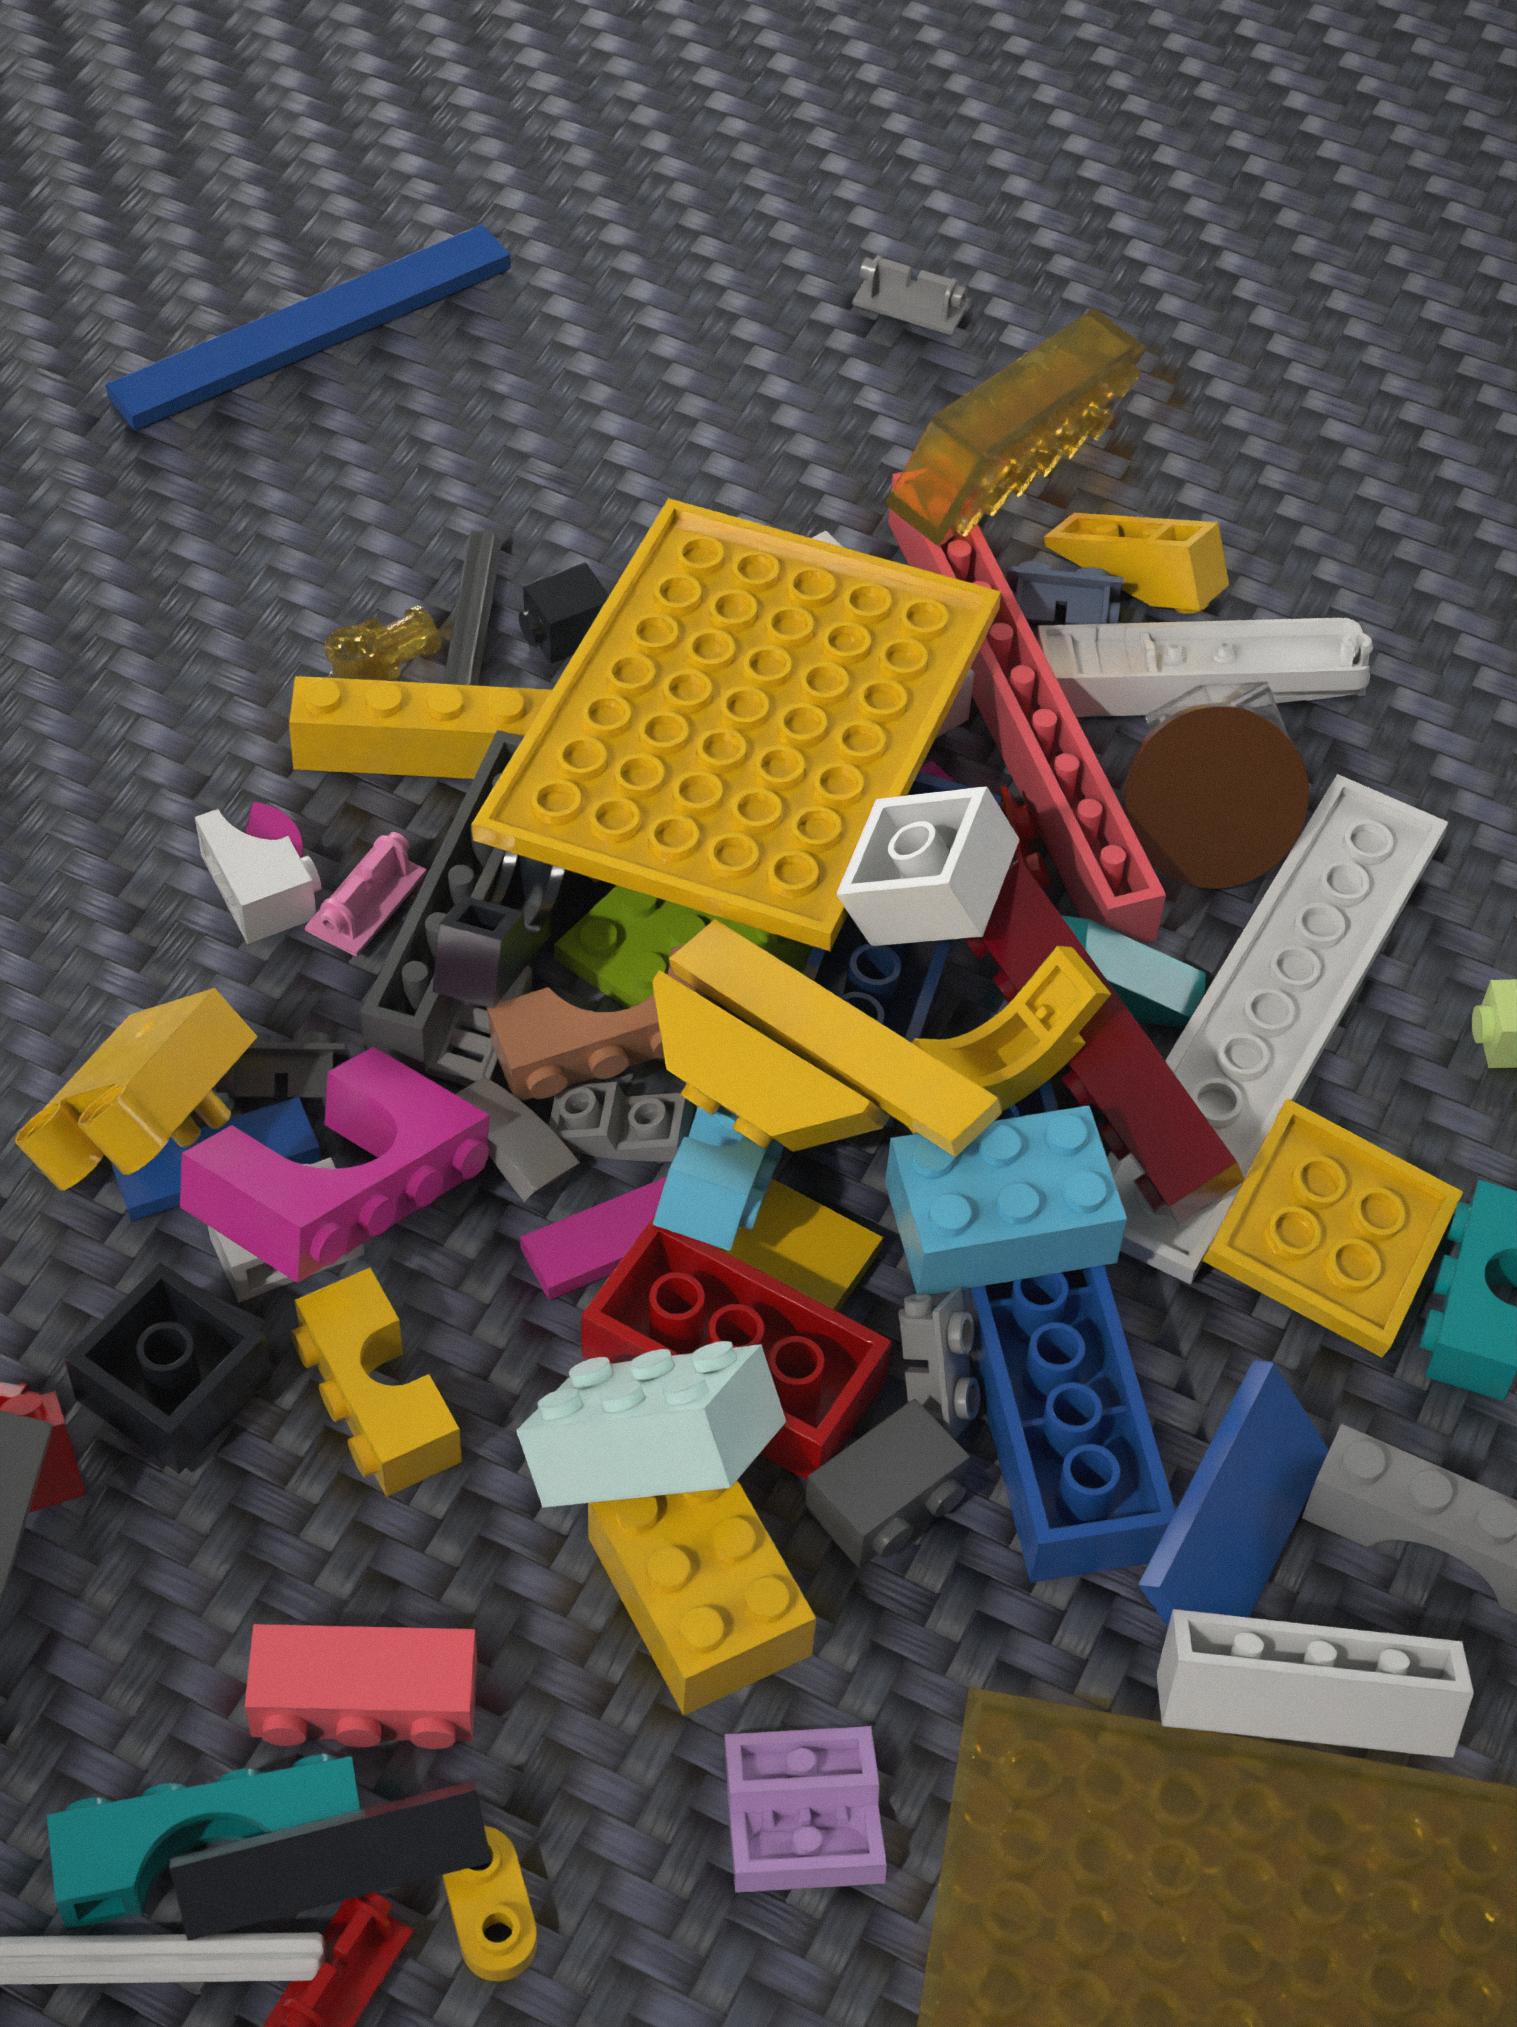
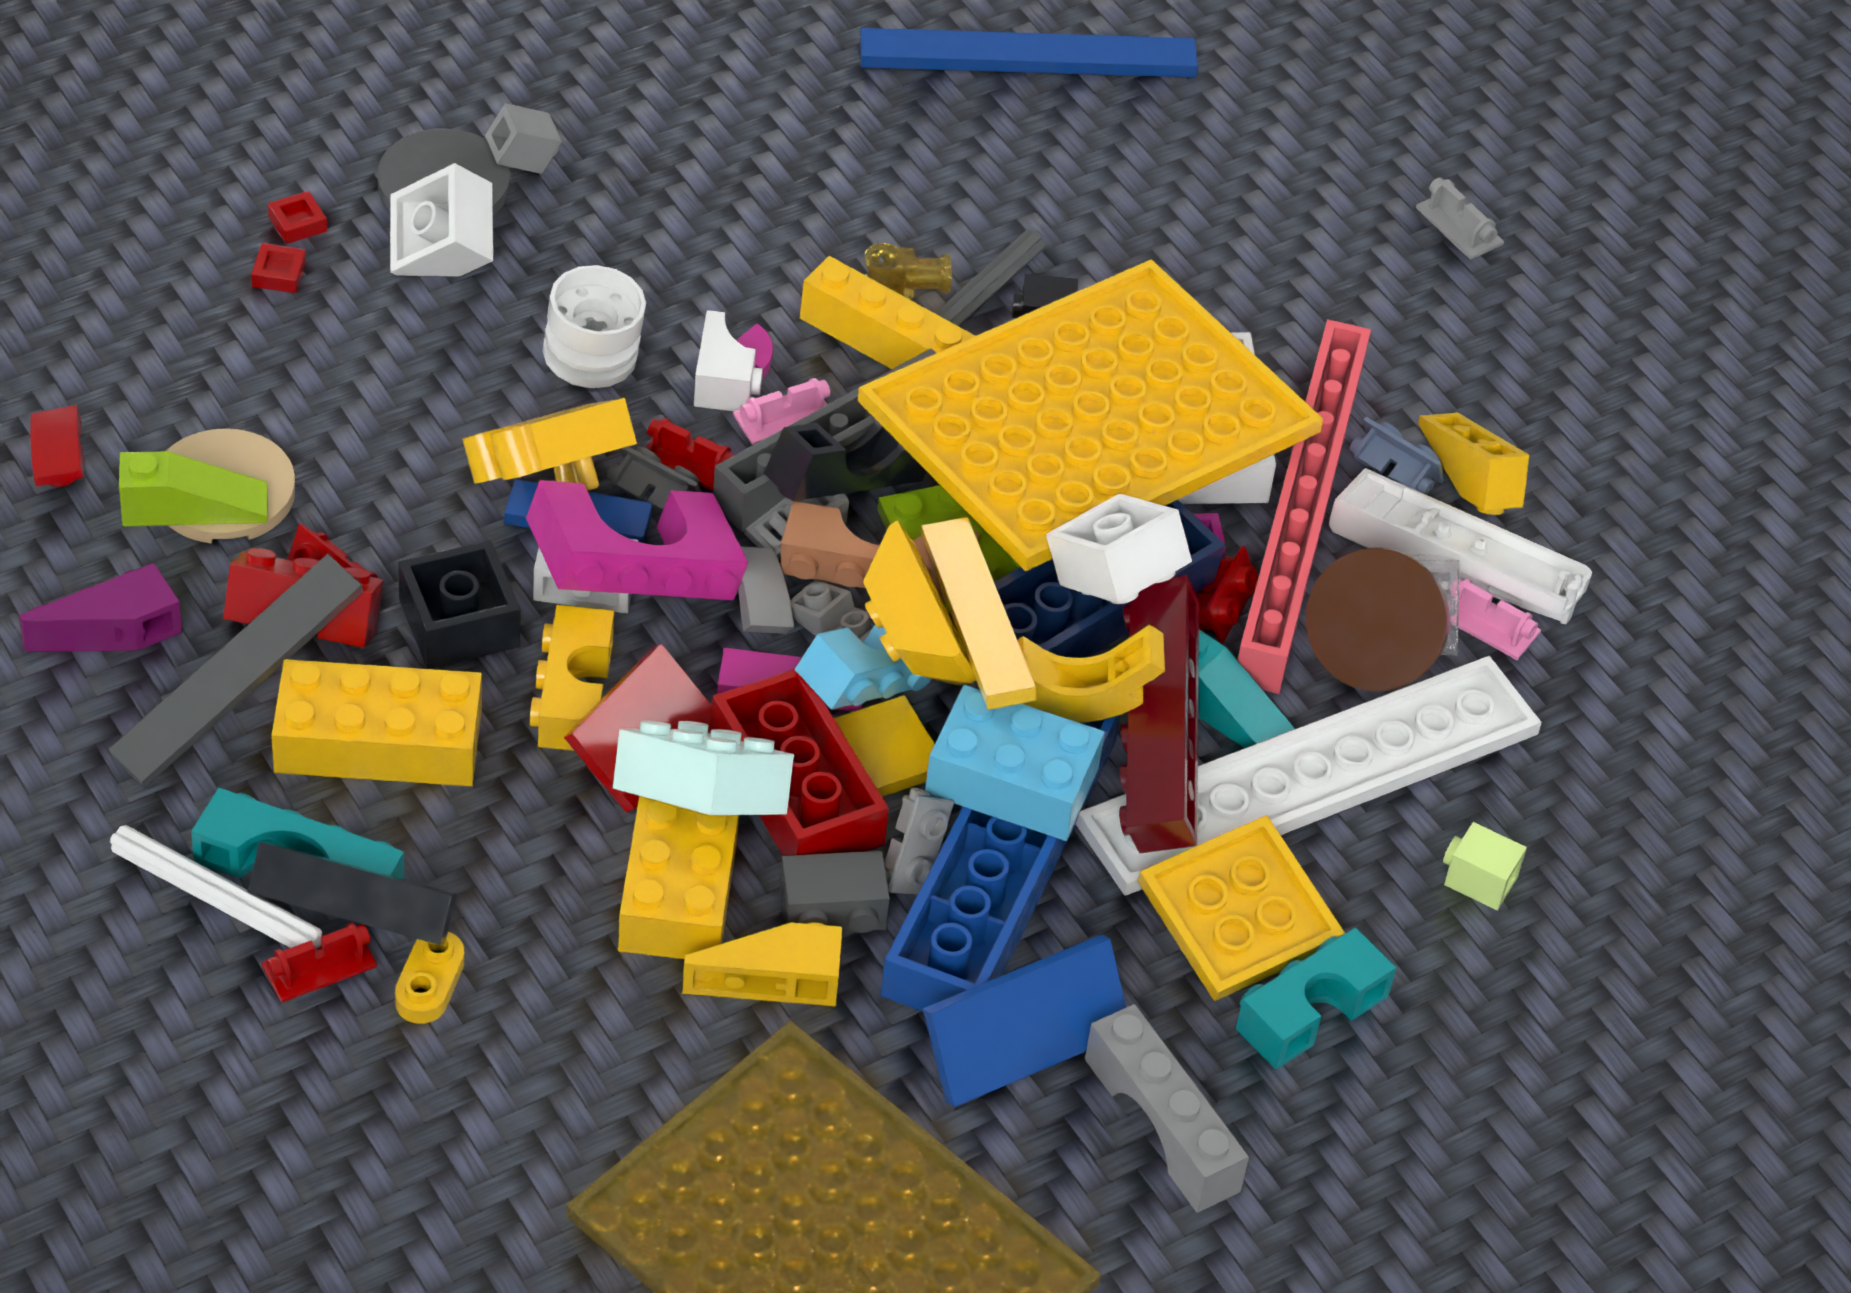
camera: 30 degrees right, 5 degrees down
(73, 908) = (594, 326): none -> white wheel
(177, 1589) = (377, 722): none -> yellow brick
(313, 1008) = (676, 448): none -> red hinge
(361, 1685) = (443, 827): coral brick -> none
(499, 1371) = (649, 692): none -> tile
(804, 1809) = (645, 1032): lavender slope -> none
(906, 1612) = (775, 965): none -> yellow slope
(1016, 427) = (1431, 324): clear yellow brick -> none
(1313, 1683) = (995, 1128): white brick -> none
(1323, 731) = (1494, 624): none -> bright pink hinge

